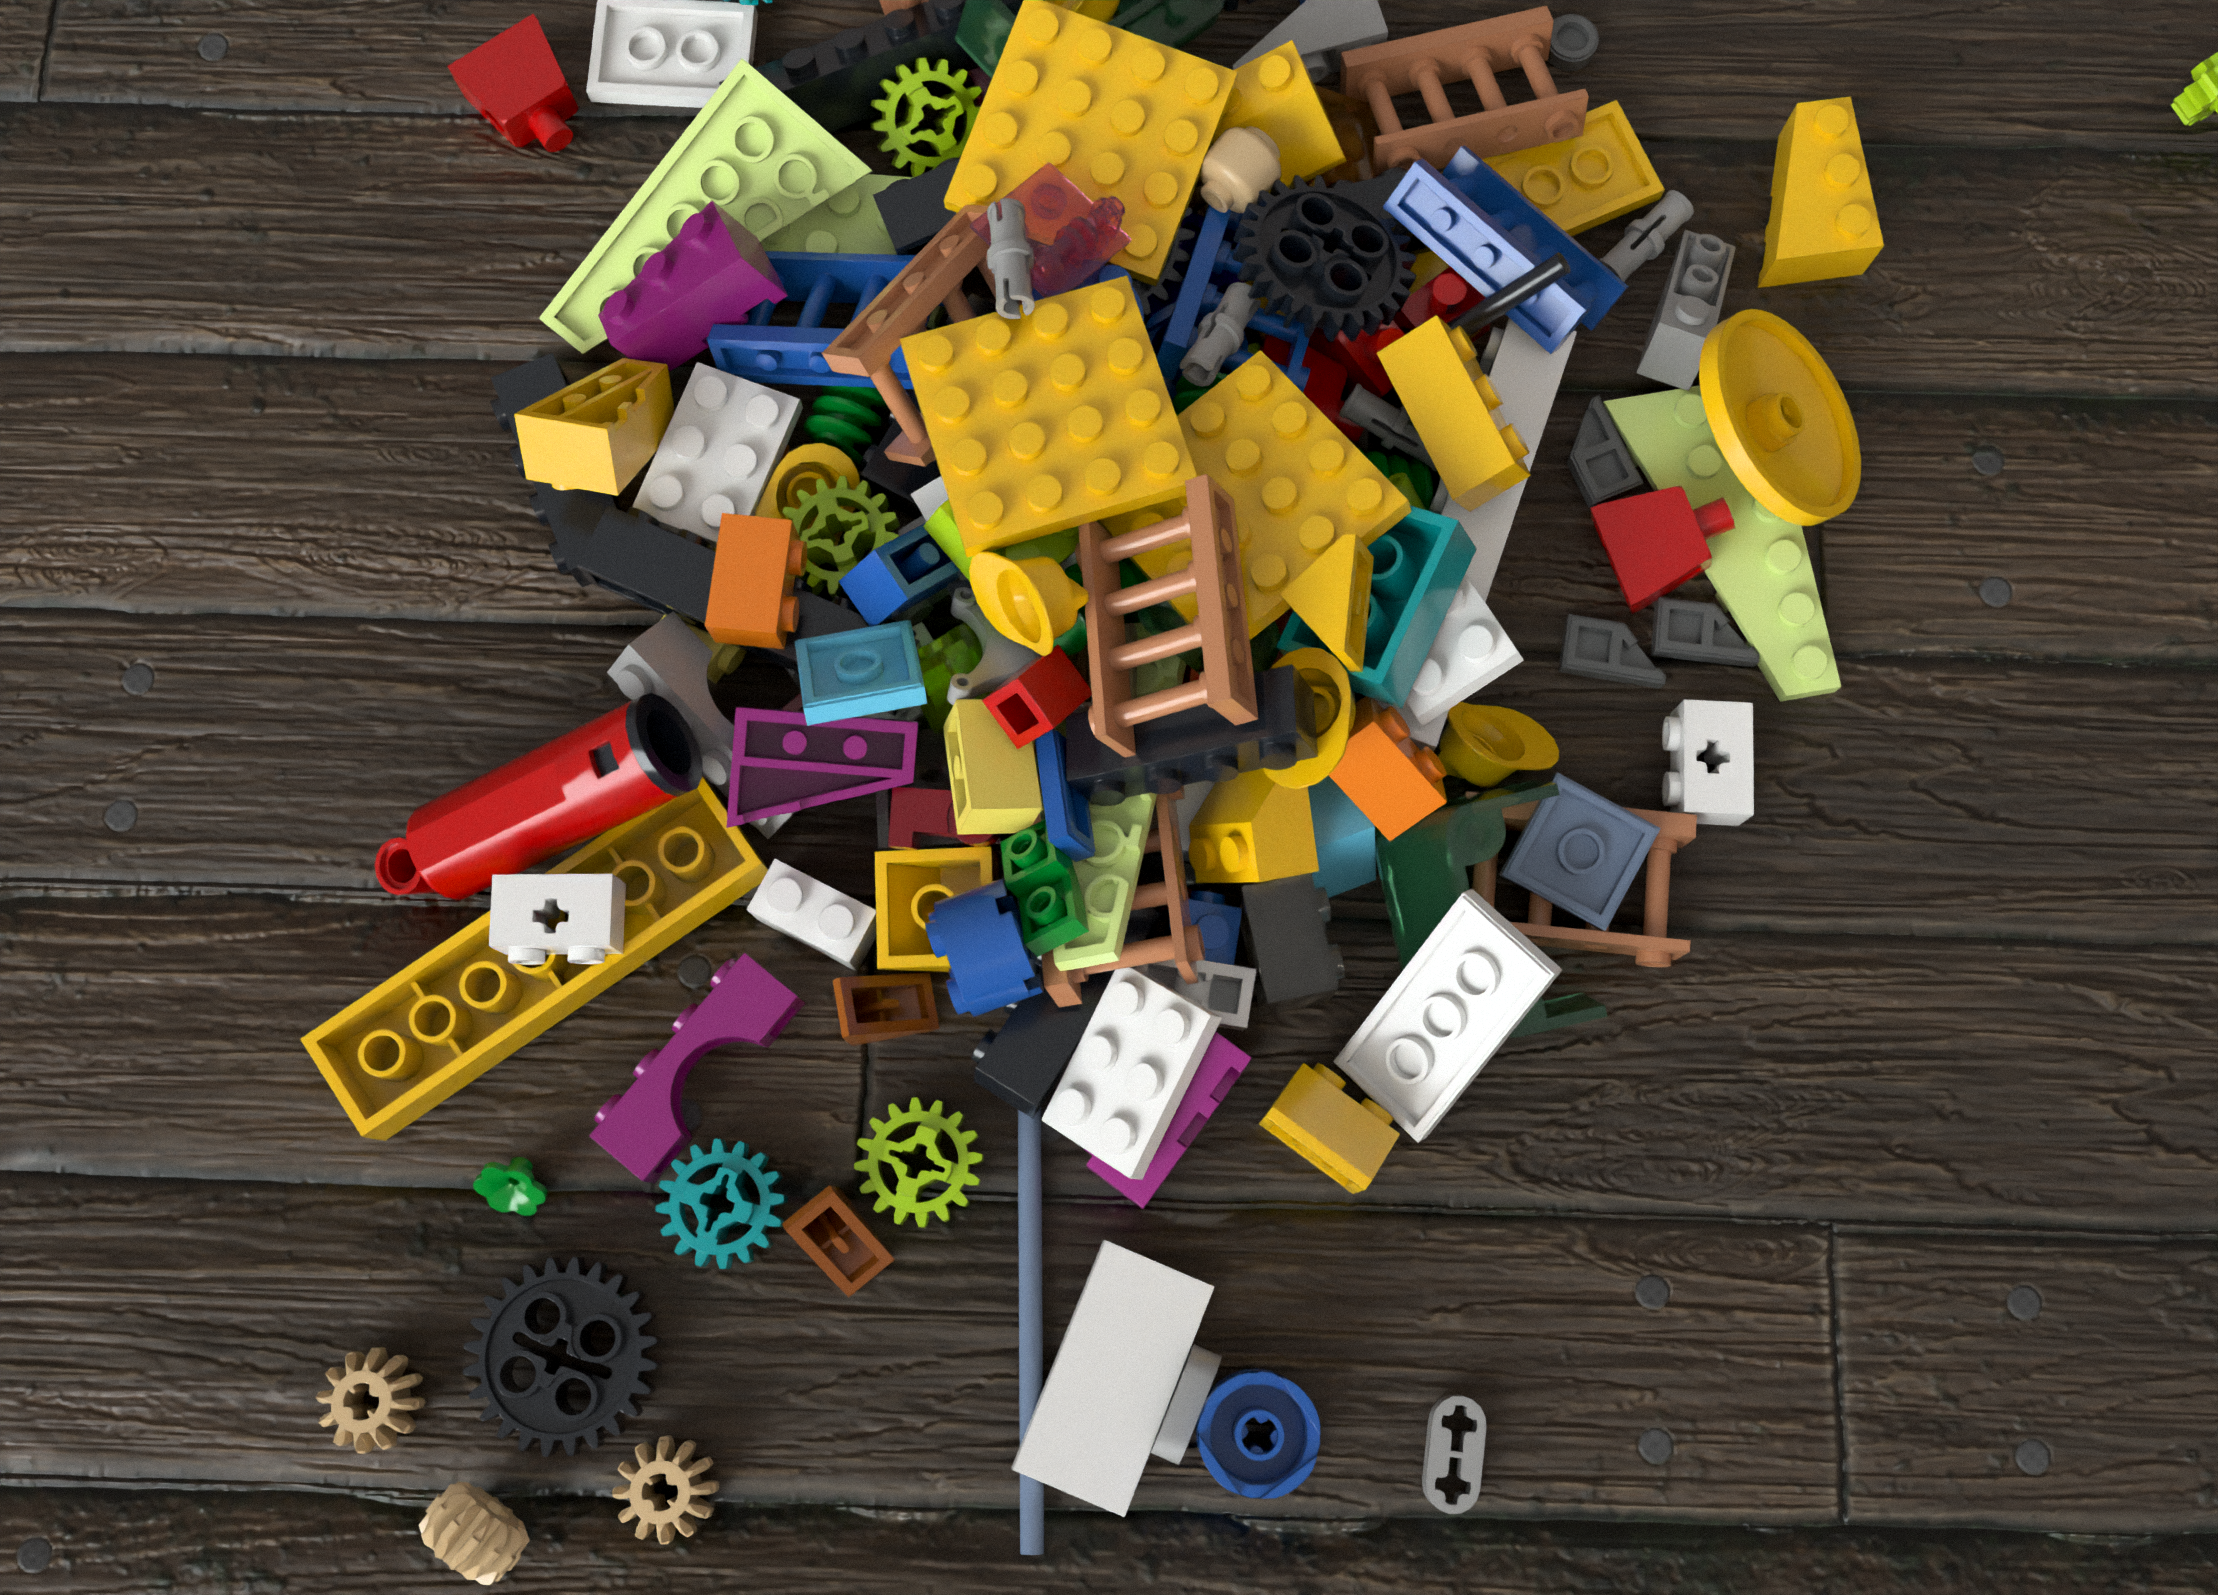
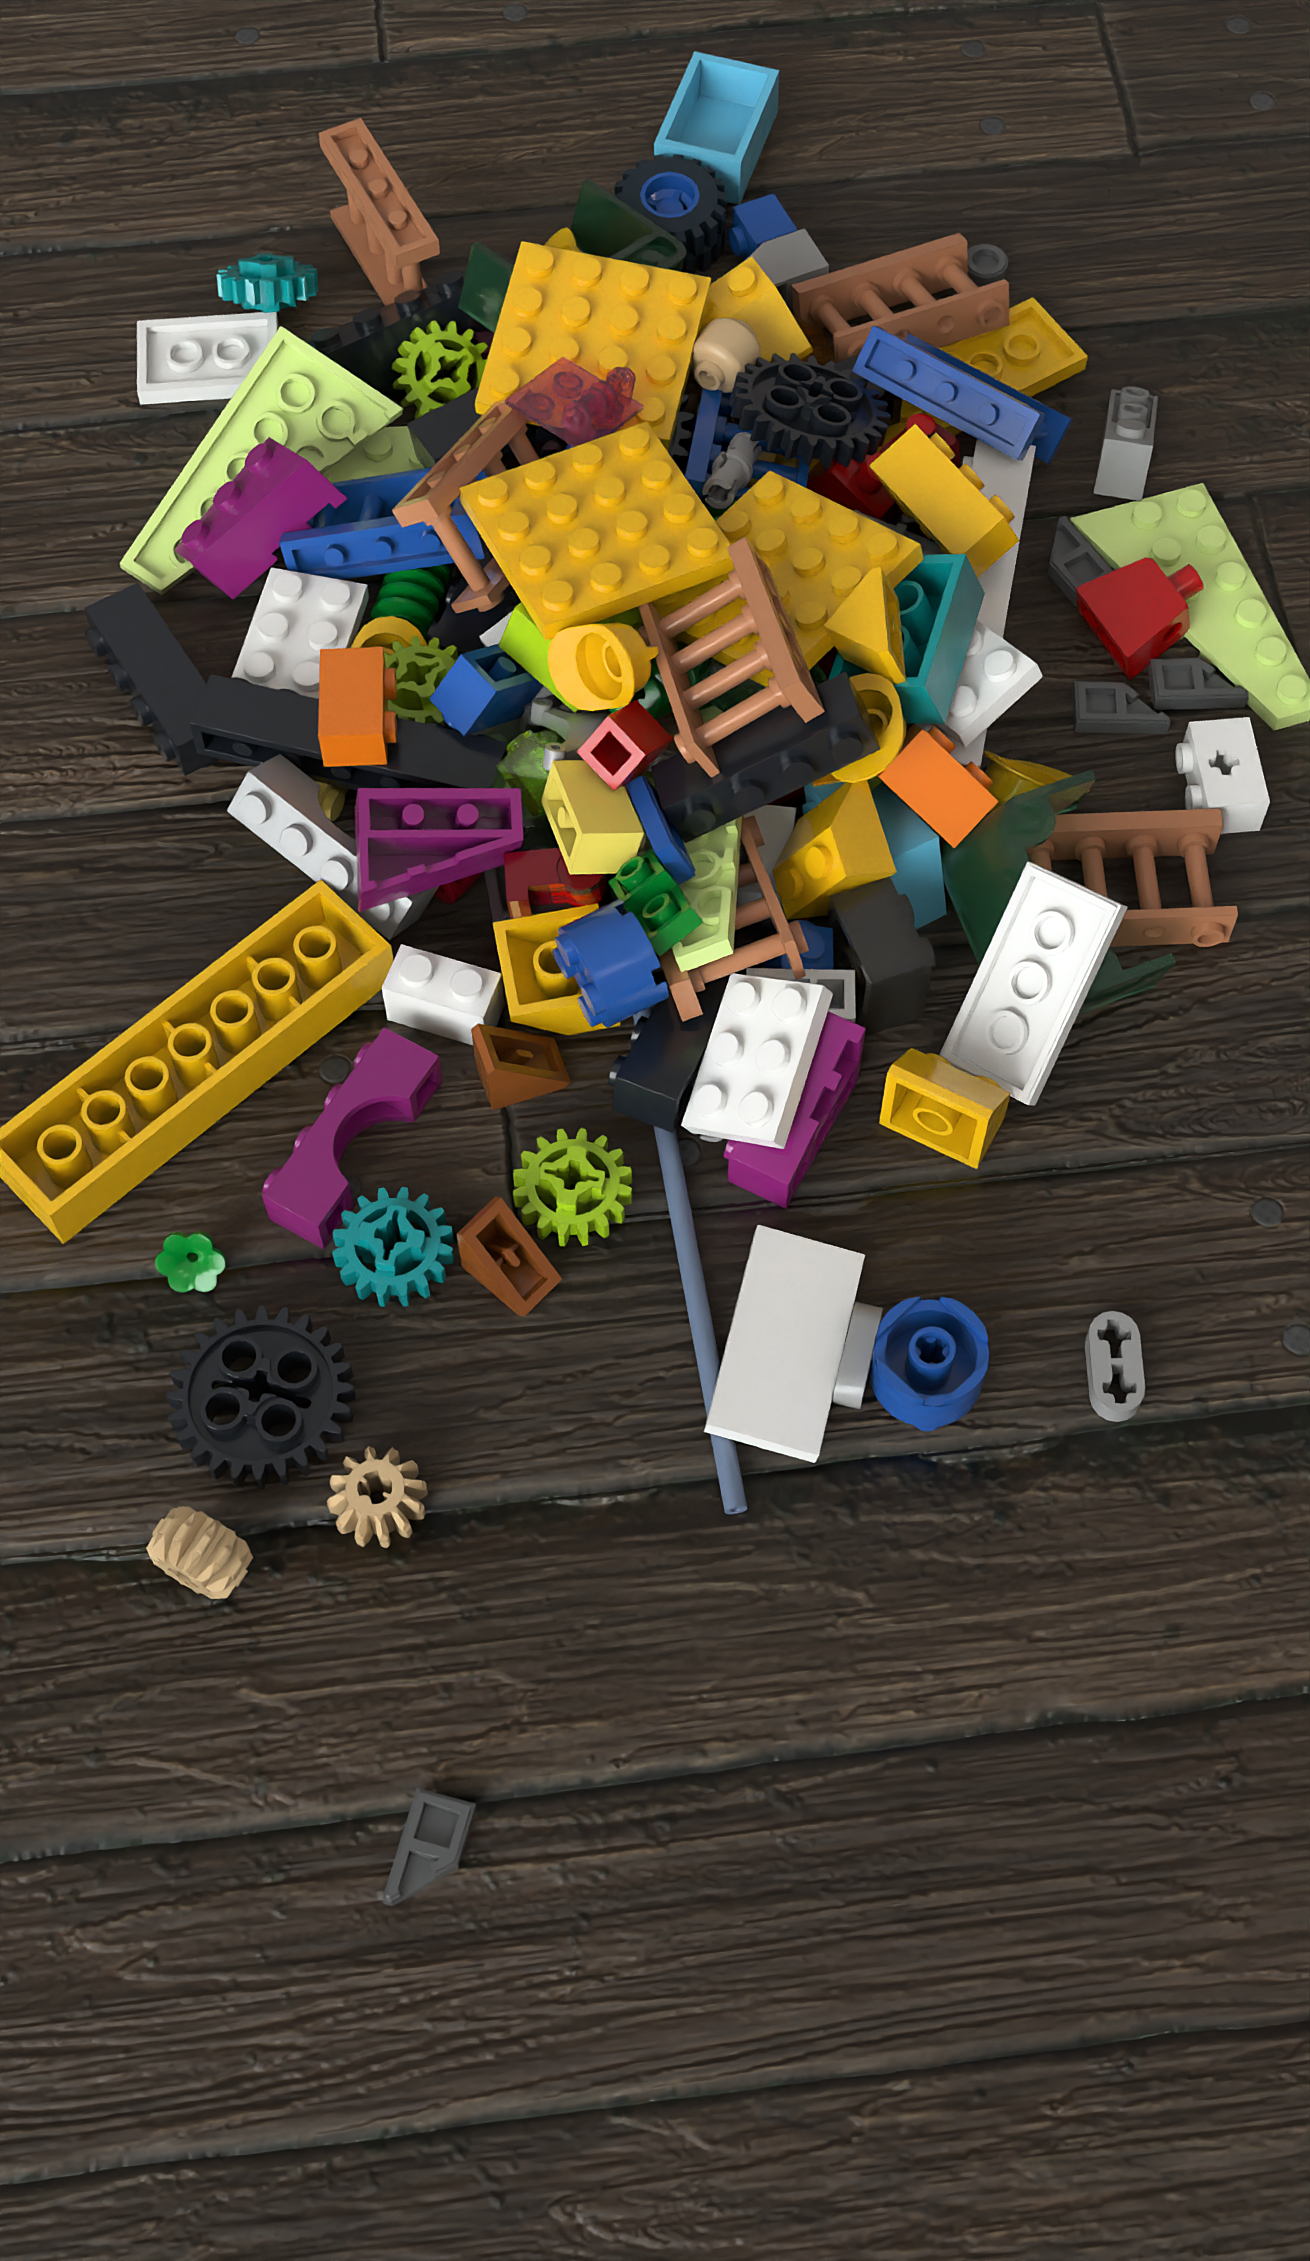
camera: 10 degrees left, 15 degrees down
(358, 1419) = (64, 1448): tan gear -> none
(519, 86) = (75, 396): red torso -> none
(527, 901) = (212, 1000): white brick -> none
(545, 802) = (180, 921): red piece -> none
(597, 428) = (189, 619): yellow wedge -> none
(859, 672) = (461, 756): medium azure tile -> none
(1010, 258) = (545, 414): light grey pin -> none
(1512, 294) = (980, 408): black bar -> none
(1580, 852) = (1124, 847): sand blue tile -> none
(1646, 236) = (1080, 394): light grey pin -> none
(1780, 417) = (1223, 497): yellow dish -> none
(1821, 199) = (1221, 349): yellow wedge -> none

